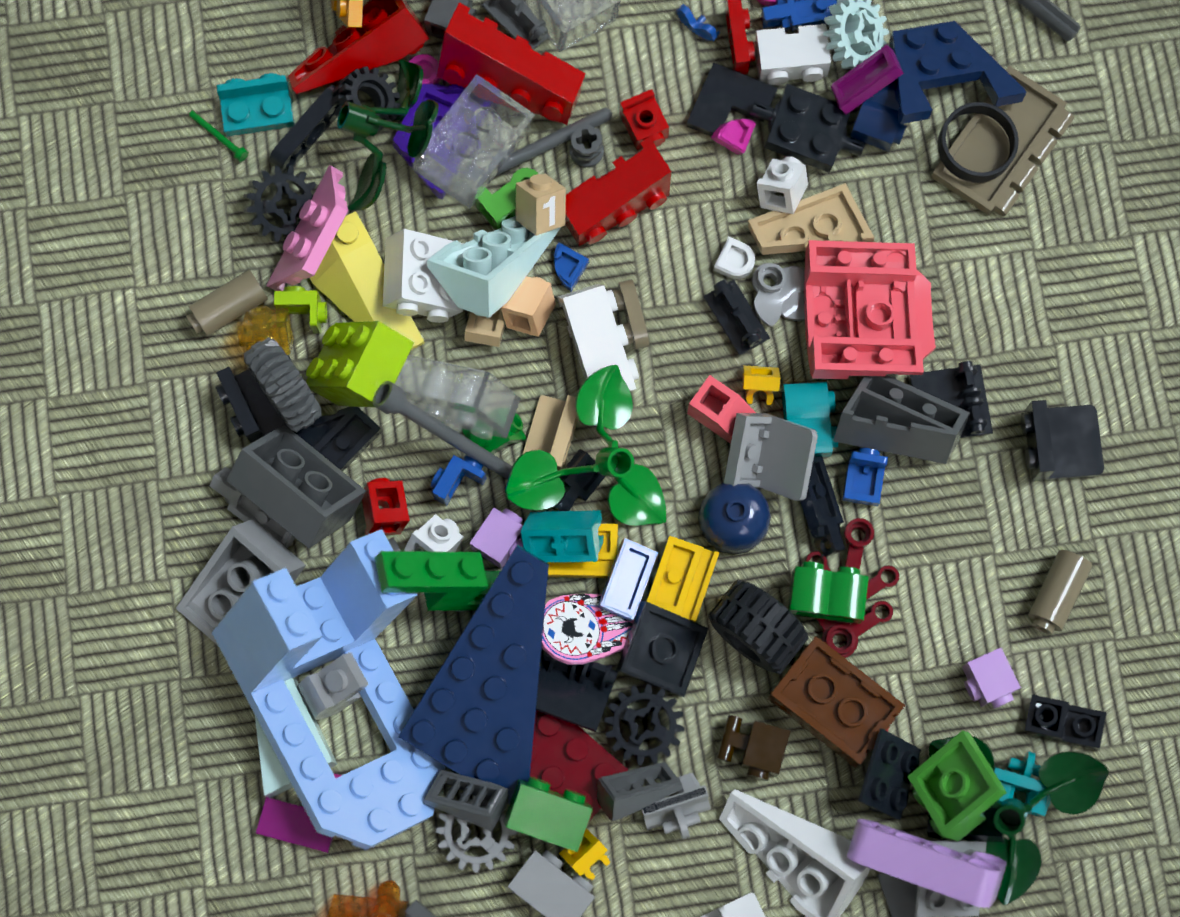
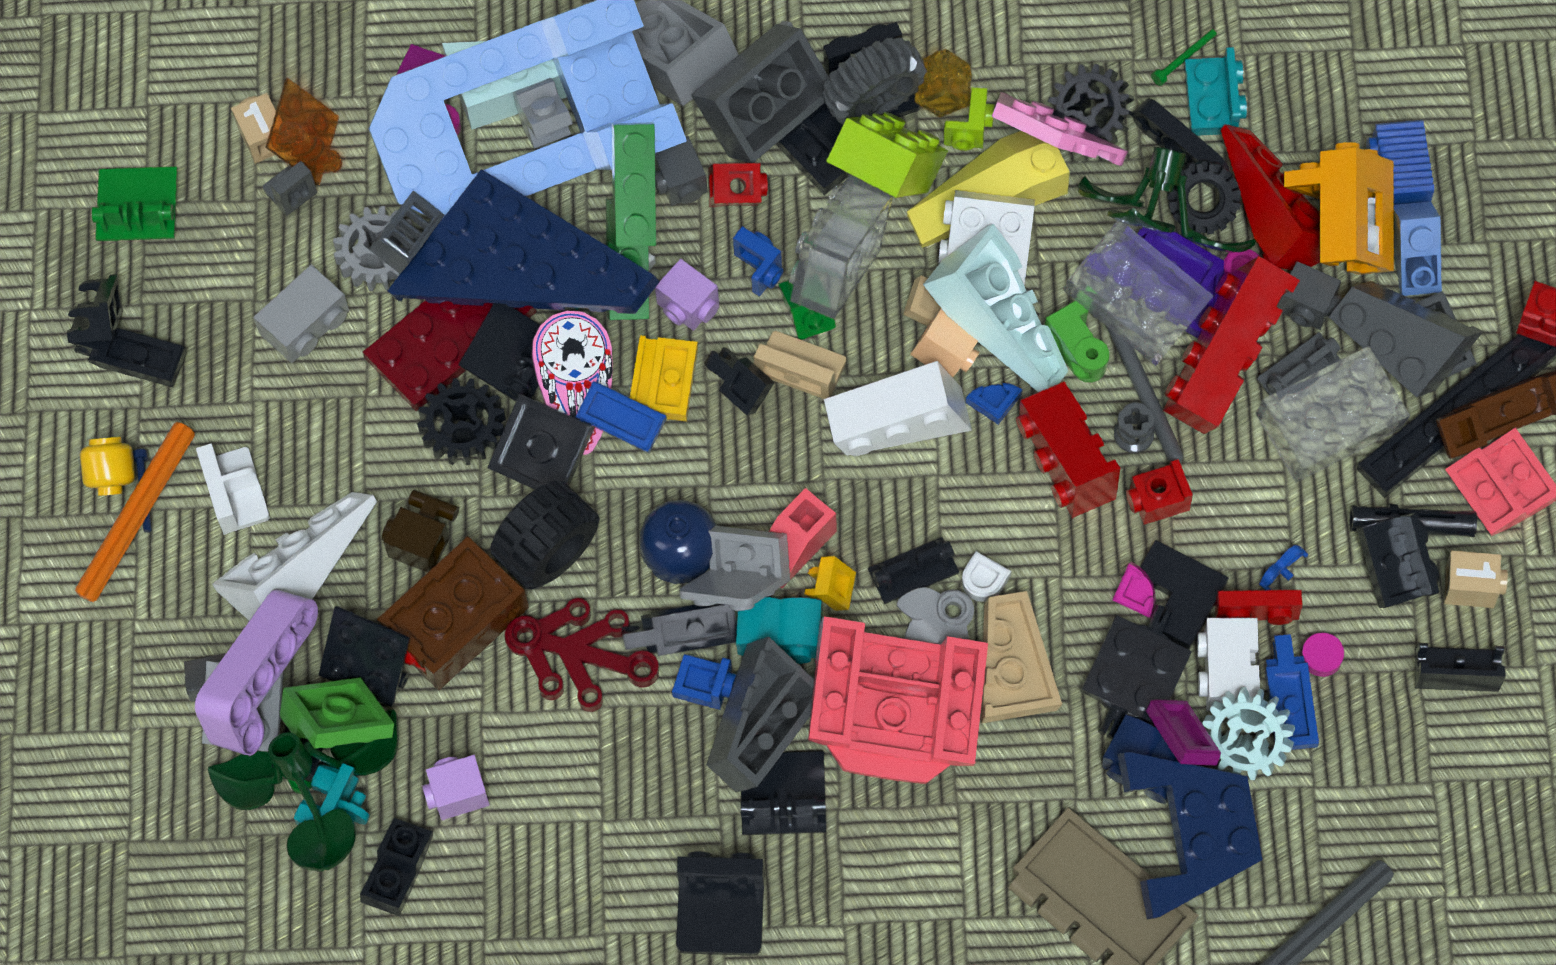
camera: 100 degrees right, 10 degrees down
(226, 303) = (983, 49): dark tan brick -> none
(391, 399) = (829, 167): dark grey piece -> none
(435, 536) = (676, 225): white brick -> none
(540, 204) = (1059, 360): tan brick -> none
(548, 814) = (377, 306): brick -> none
(563, 535) = (676, 351): teal hinge -> none
(588, 853) = (337, 349): yellow tile -> none
(623, 792) = (395, 378): dark grey slope -> none
(635, 327) = (940, 454): dark tan plate -> none
(635, 498) = (712, 436): green plant -> none
(679, 810) = (362, 443): light grey hips -> none
(682, 578) = (616, 478): yellow plate -> none
(785, 177) = (1064, 630): white brick -> none
(828, 594) = (574, 618): green brick -> none
(996, 114) = (1102, 815): black tyre -> none
(1059, 592) = (543, 876): dark tan brick -> none

